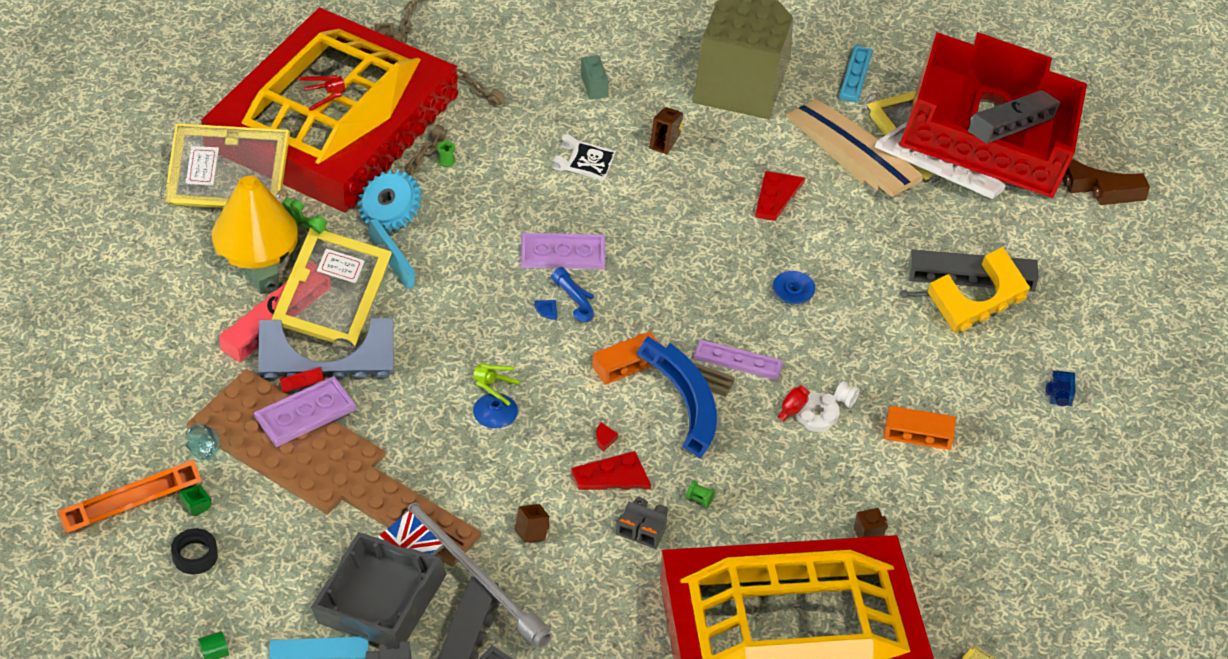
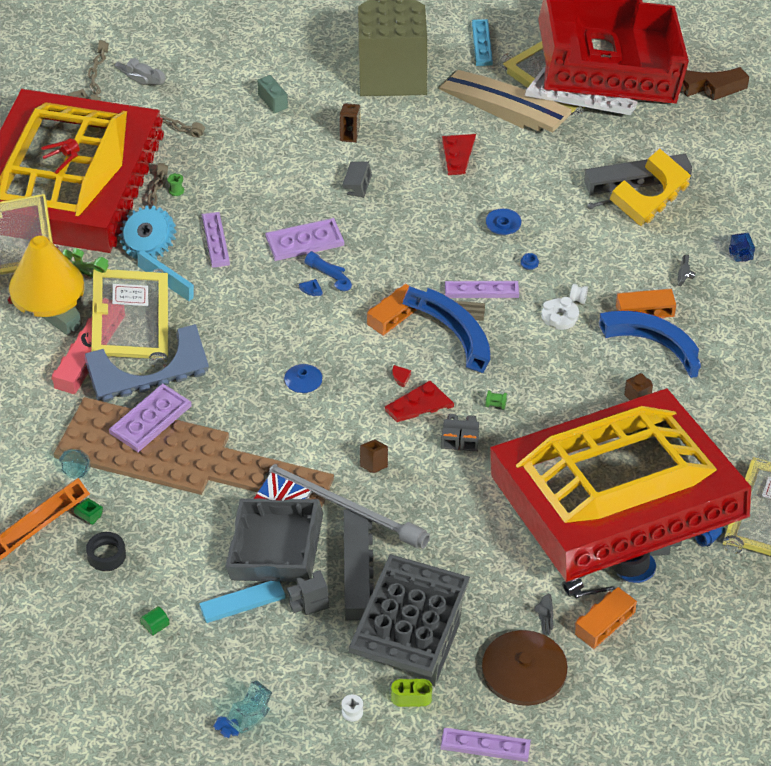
camera: 15 degrees left, 0 degrees up
(302, 379) = (137, 392): red piece -> none
(462, 19) = (141, 72): none -> light grey animal
(465, 227) = (215, 239): none -> lavender tile
(485, 375) = (285, 352): lime plant -> none
(585, 158) = (291, 161): flag -> none
(649, 196) = (357, 178): none -> dark grey hinge
(794, 402) = (541, 310): red plant -> none
(806, 341) = (529, 261): none -> blue plate
(917, 457) = (656, 329): none -> blue arch
(982, 399) = (684, 271): none -> dark grey piece
(1013, 116) = (628, 44): dark grey brick -> none

